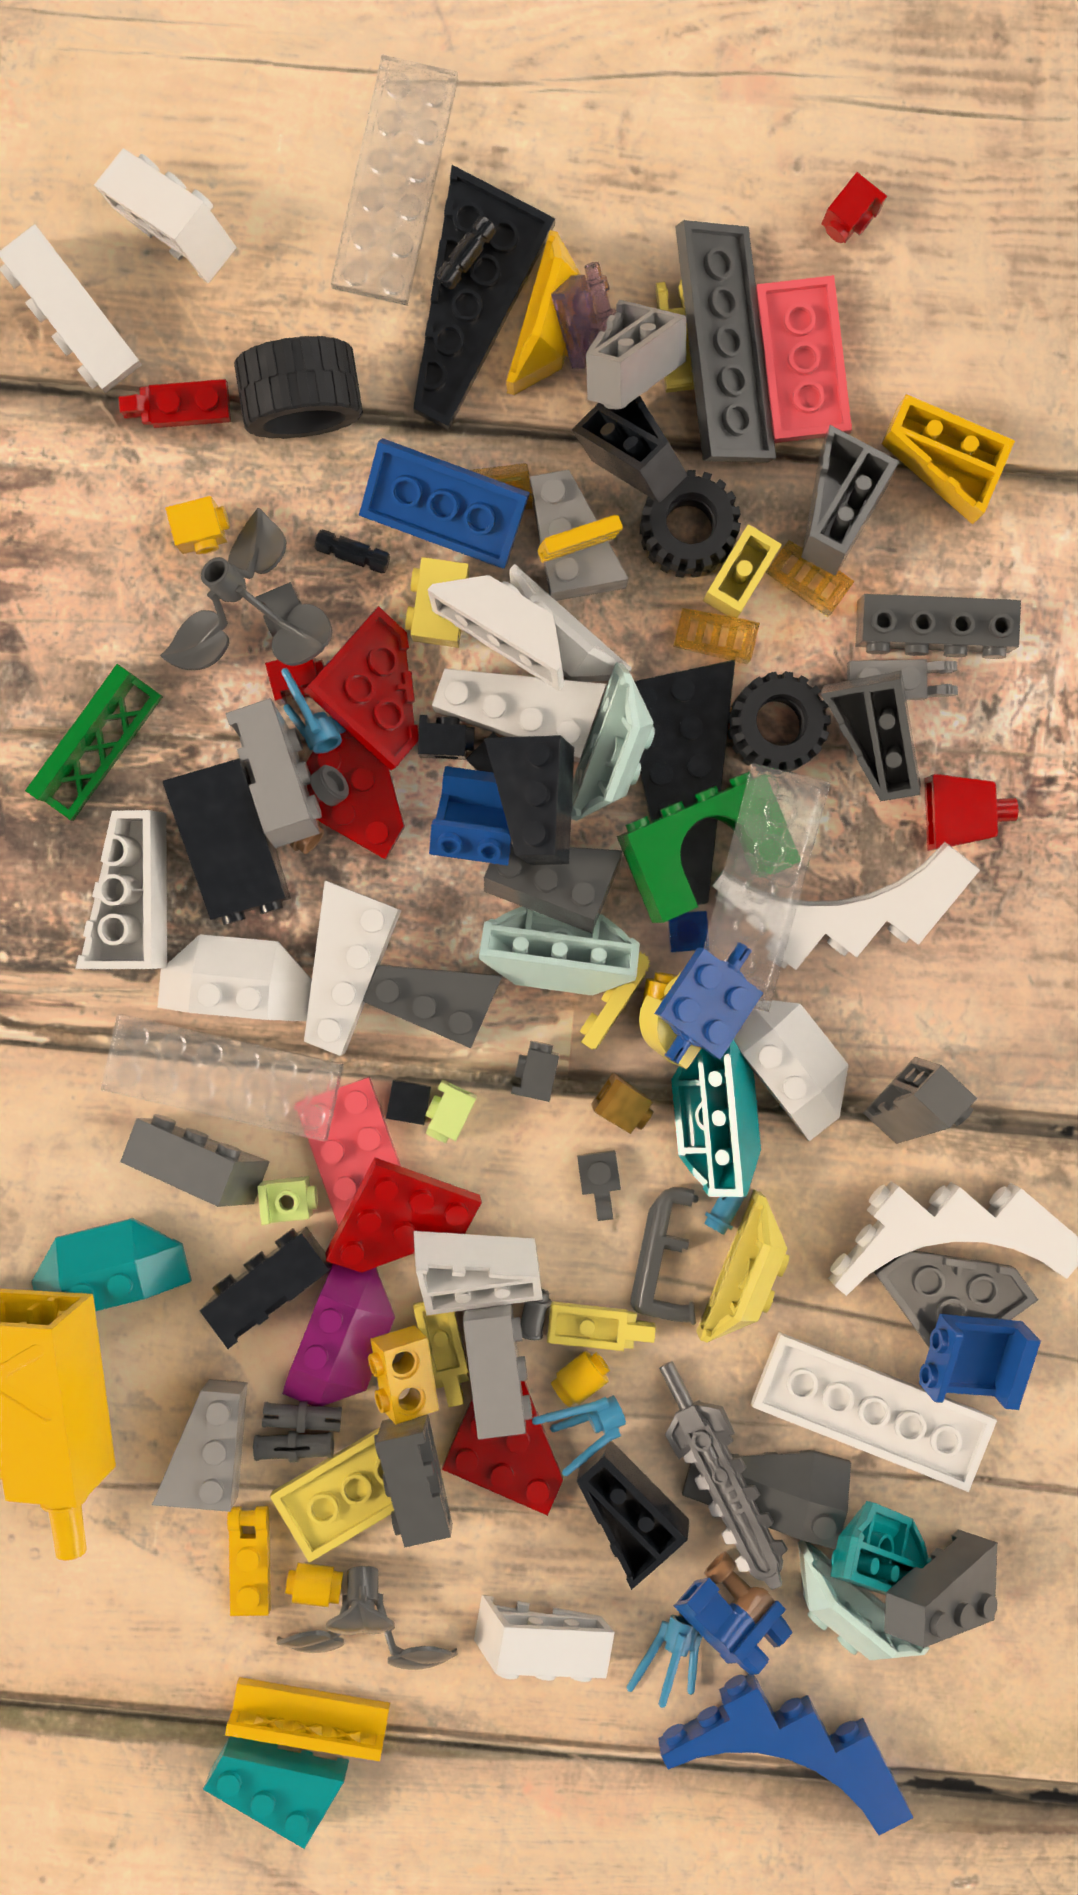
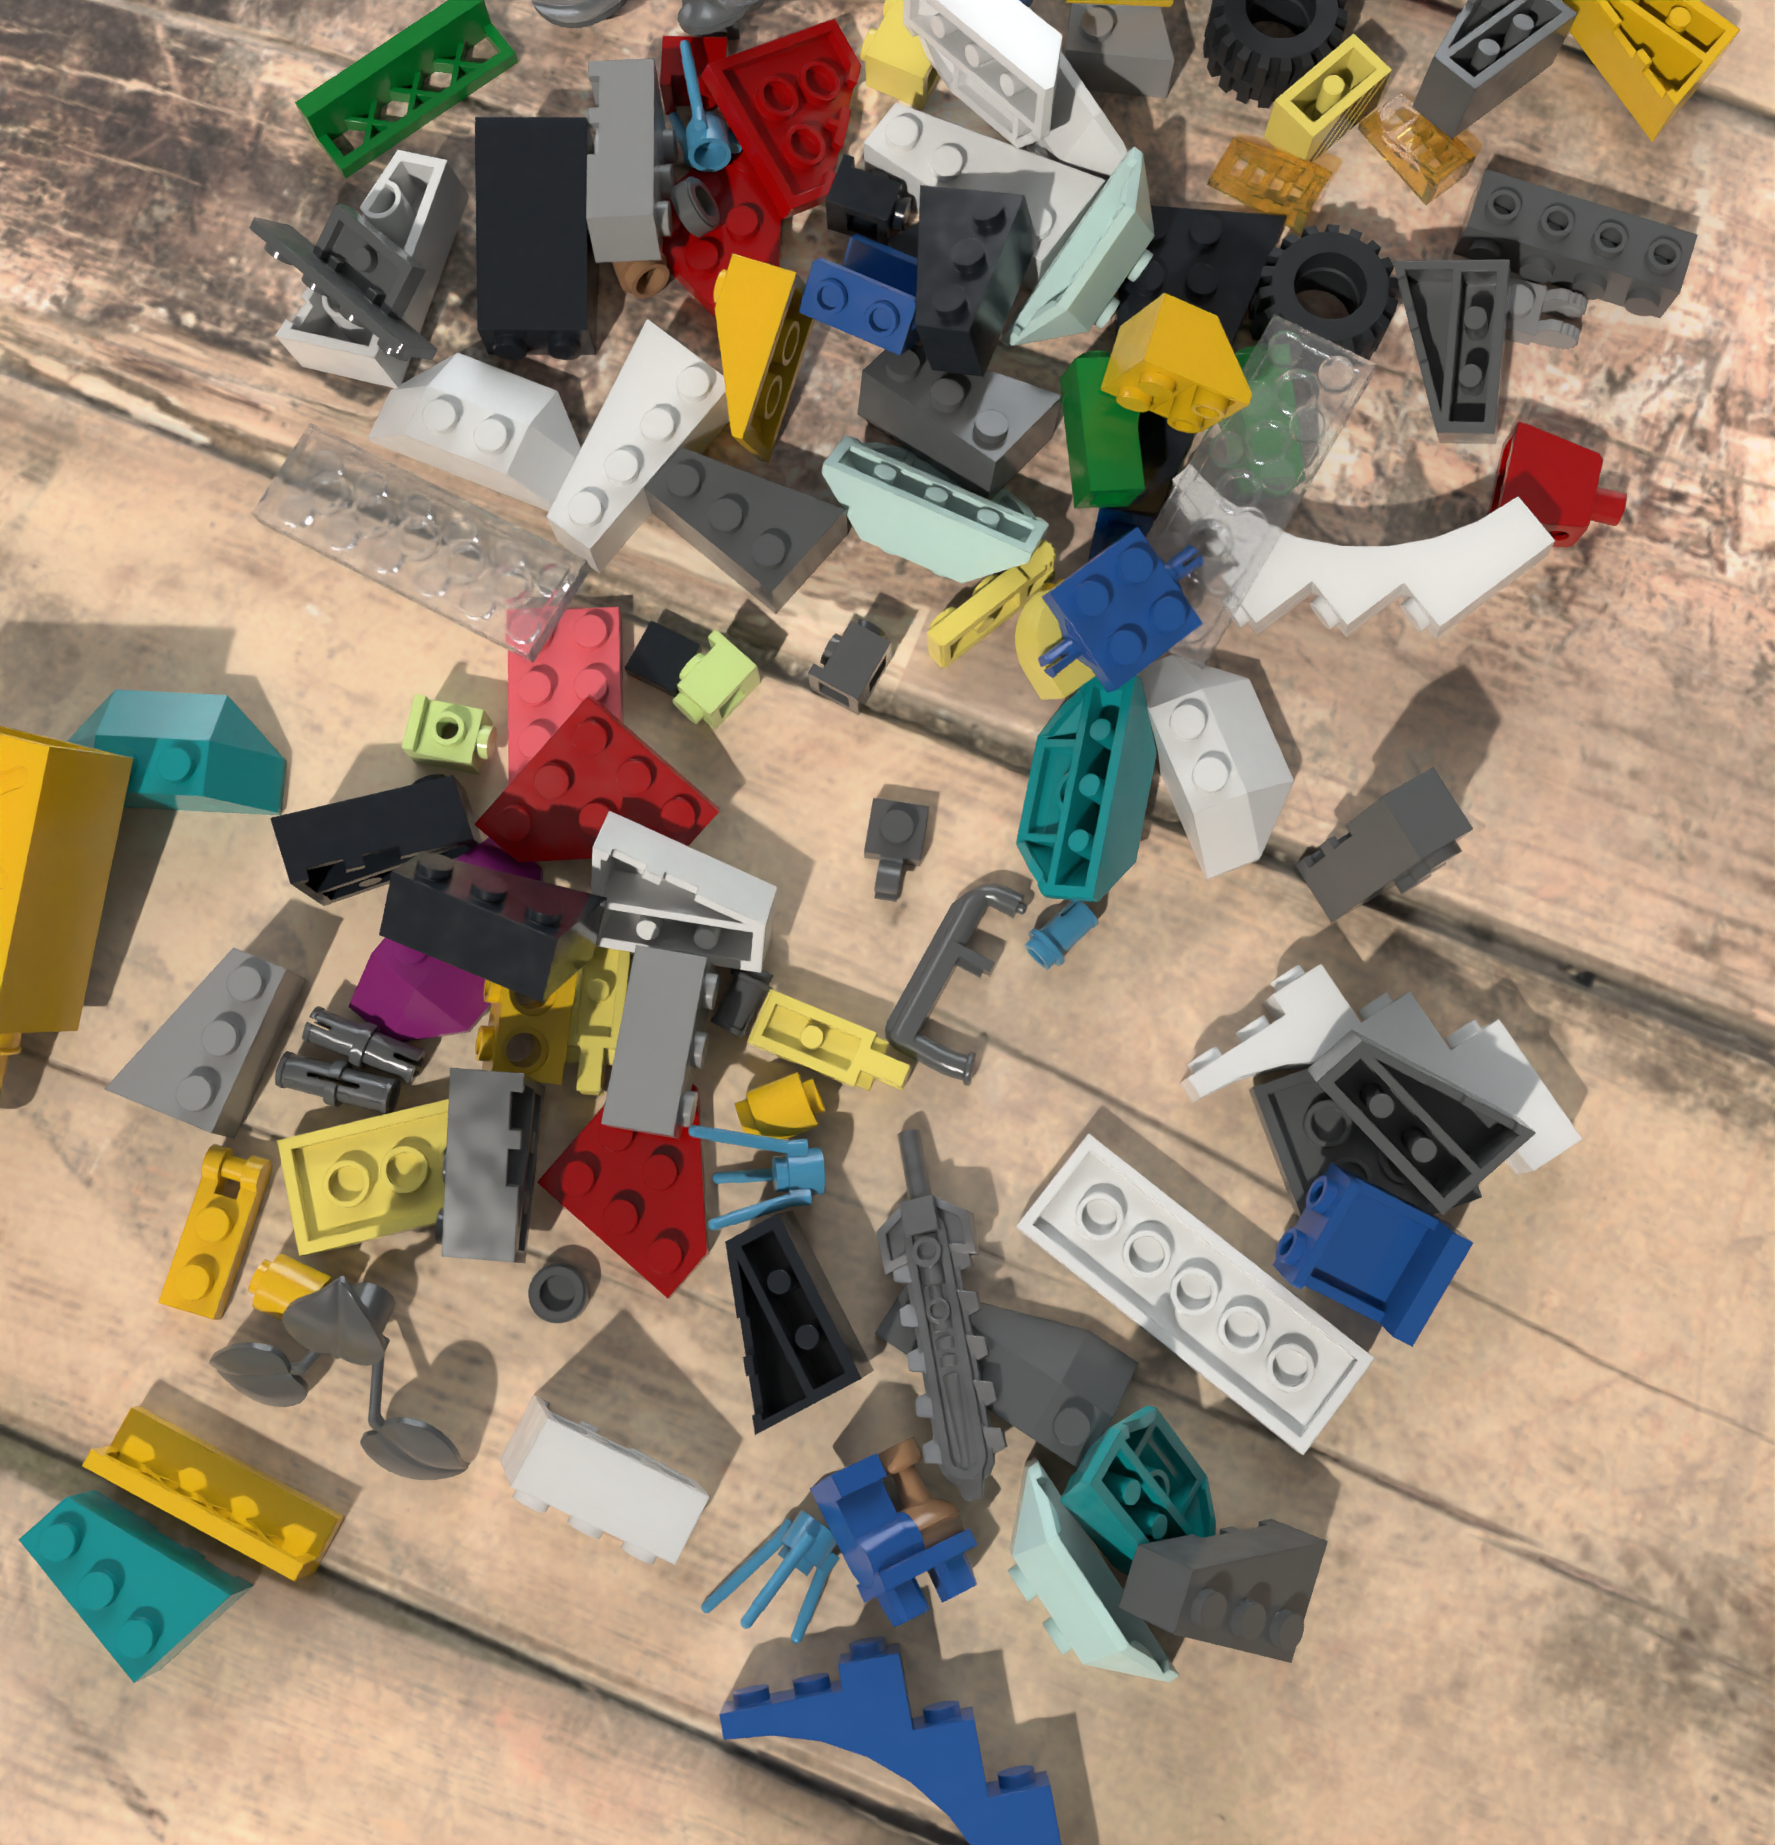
camera: 25 degrees right, 10 degrees down
(119, 919) = (357, 270): none -> dark grey bracket
(194, 1162) = (343, 640): dark grey wedge -> none
(368, 1337) = (492, 922): none -> black wedge
(407, 882) = (759, 347): none -> yellow slope
(477, 1530) = (559, 1293): none -> dark grey tile
(622, 1104) = (958, 734): pearl gold slope -> none
(697, 834) = (1176, 366): none -> yellow slope
(747, 1273) = (1066, 1030): light yellow wedge -> none
(987, 1275) = (1418, 1119): none -> dark grey wedge

